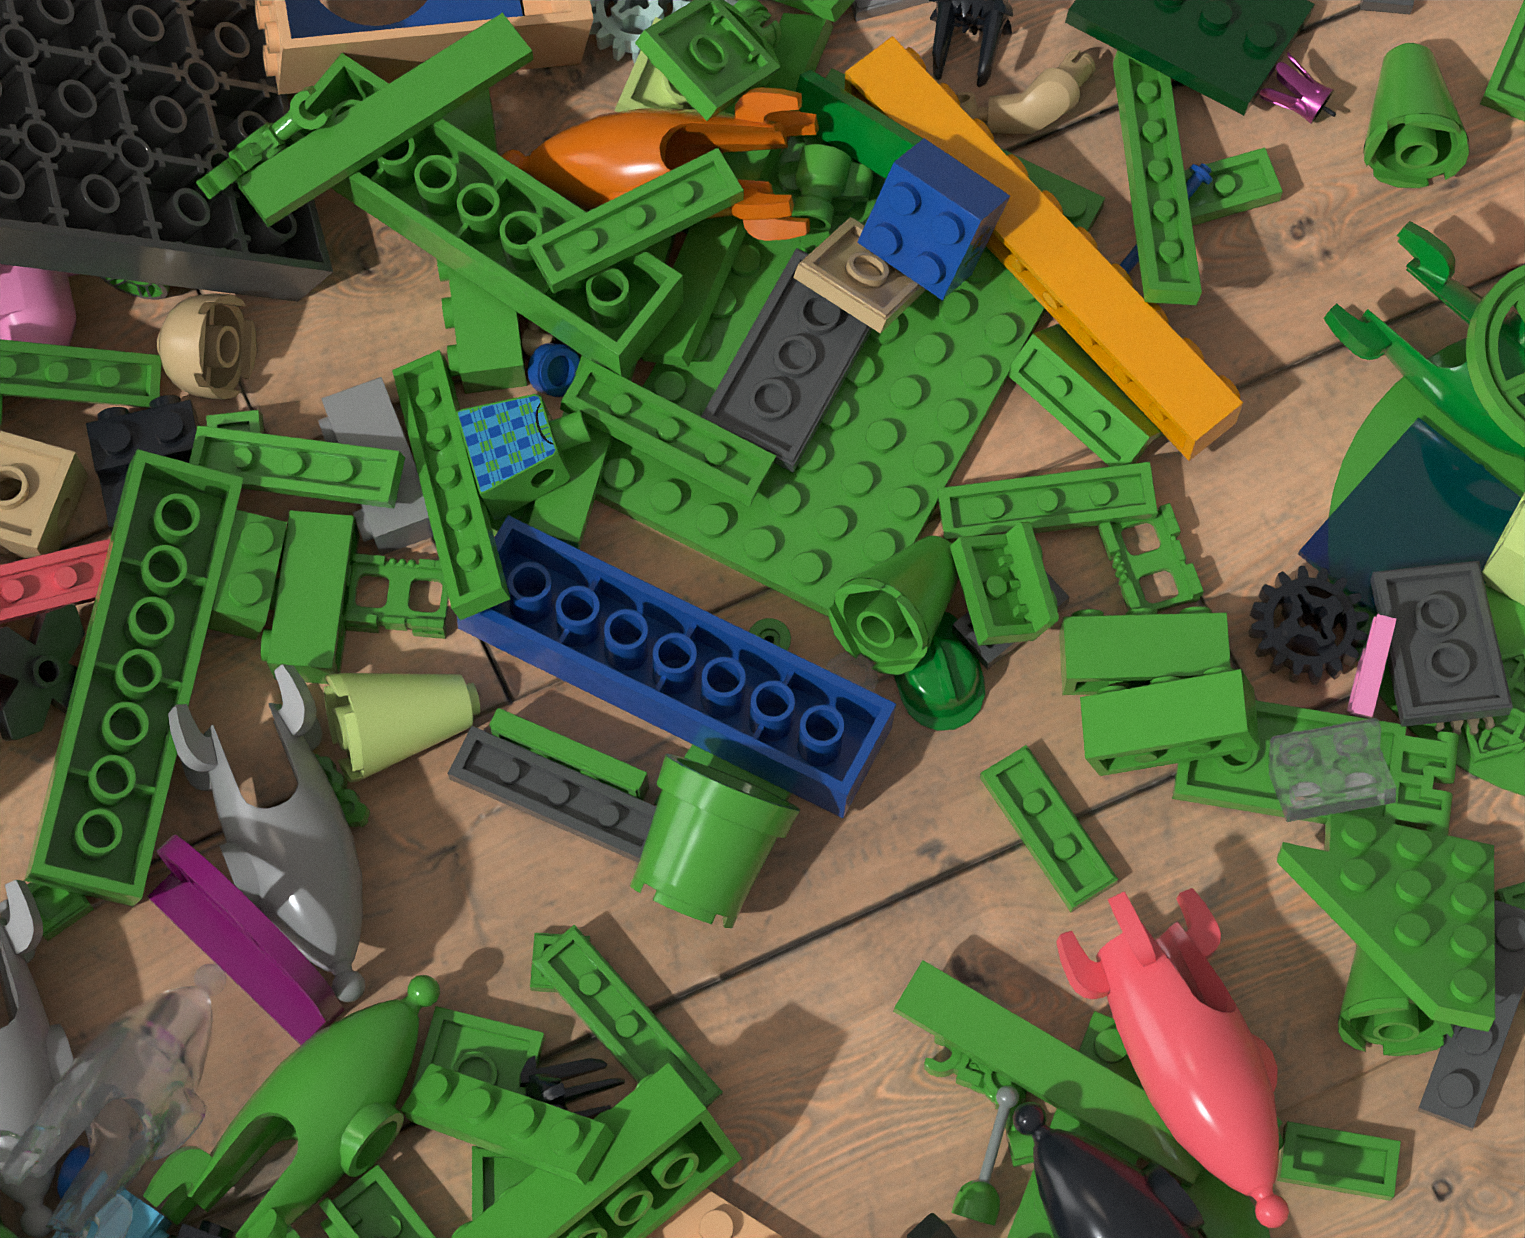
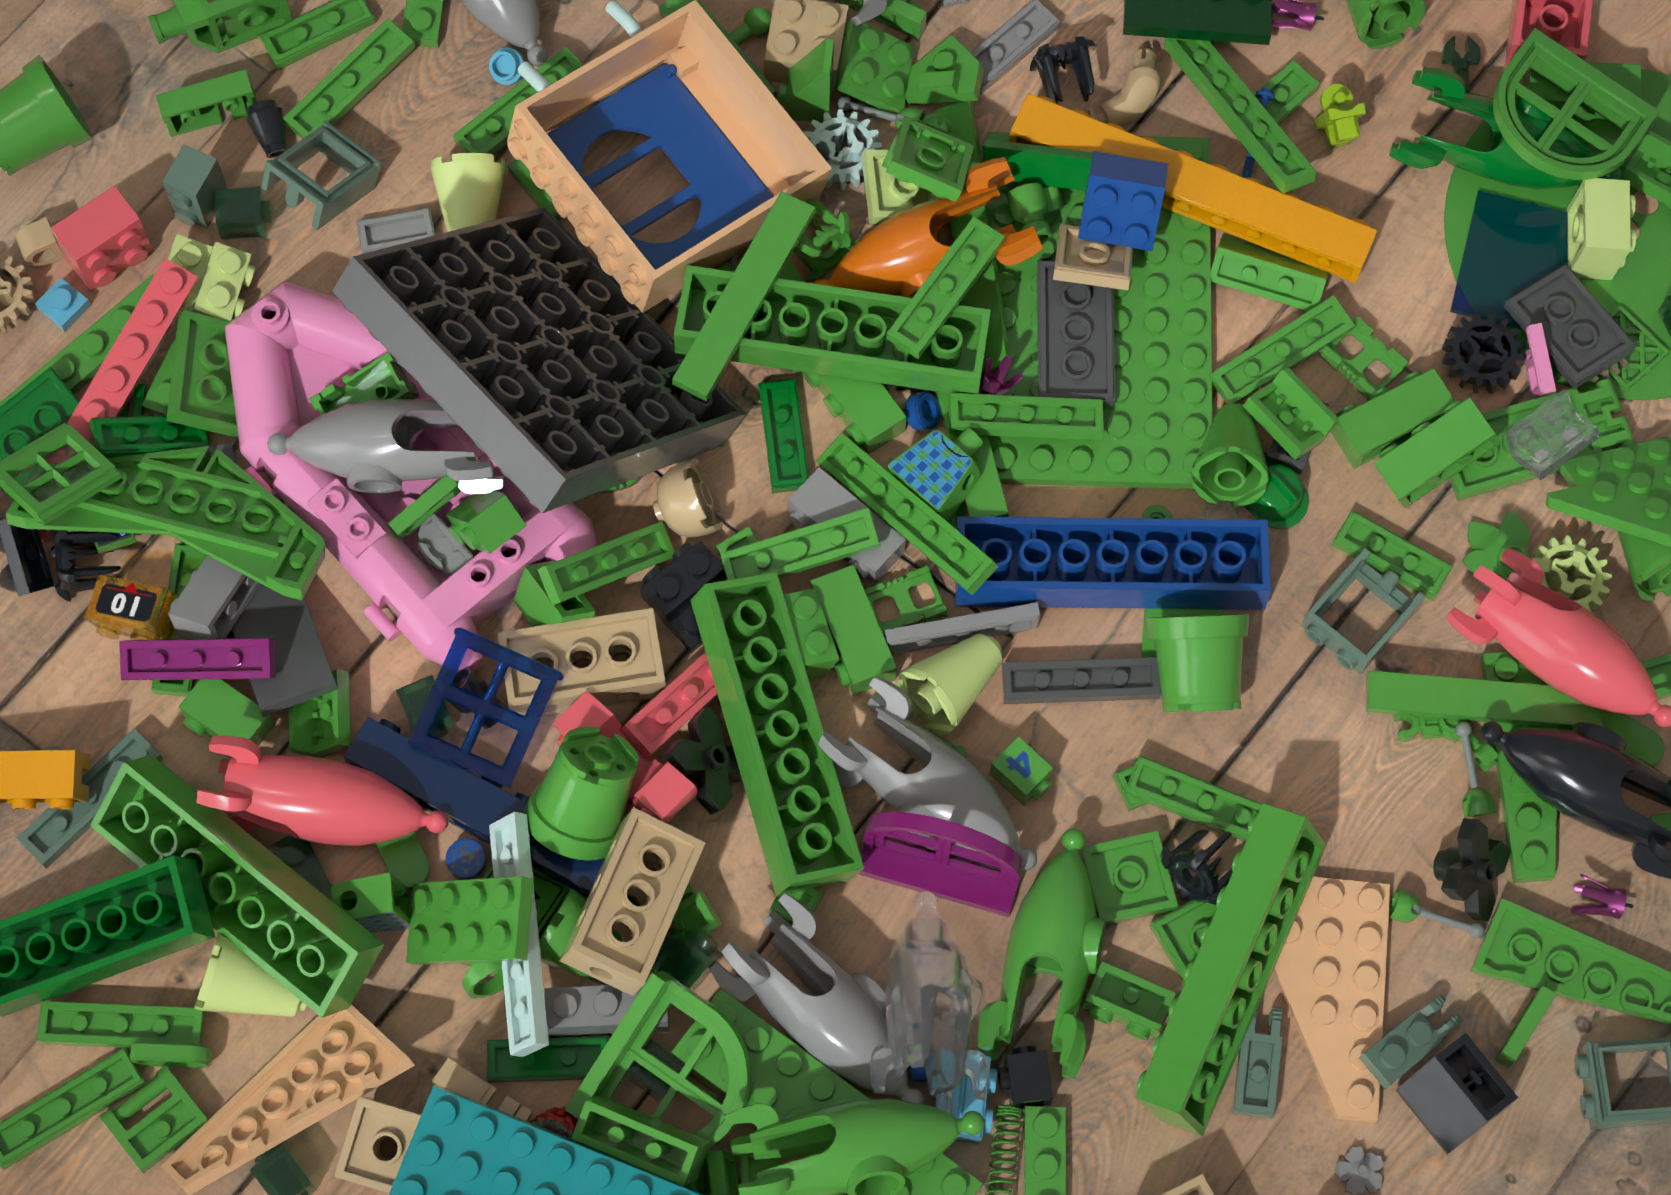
camera: 30 degrees left, 0 degrees up
(263, 144) = (673, 347): bright green piece -> none
(374, 319) = (783, 435): none -> green tile
(418, 874) = (1022, 771): none -> bright green brick
(442, 657) = (959, 628): none -> light grey tile
(508, 1123) = (1180, 890): bright green plate -> none
(528, 107) = (837, 233): none -> bright green piece
(570, 753) = (1074, 649): bright green tile -> none
(656, 374) = (995, 382): none -> flat silver piece
(1012, 858) = (1384, 588): none -> sand green window
(1185, 867) = (1491, 542): none -> bright green plate
(1274, 982) = (1581, 567): none -> yellowish green gear
(1282, 239) = (1338, 117): none -> lime hips
(1484, 251) = (1461, 65): none -> clear green bar

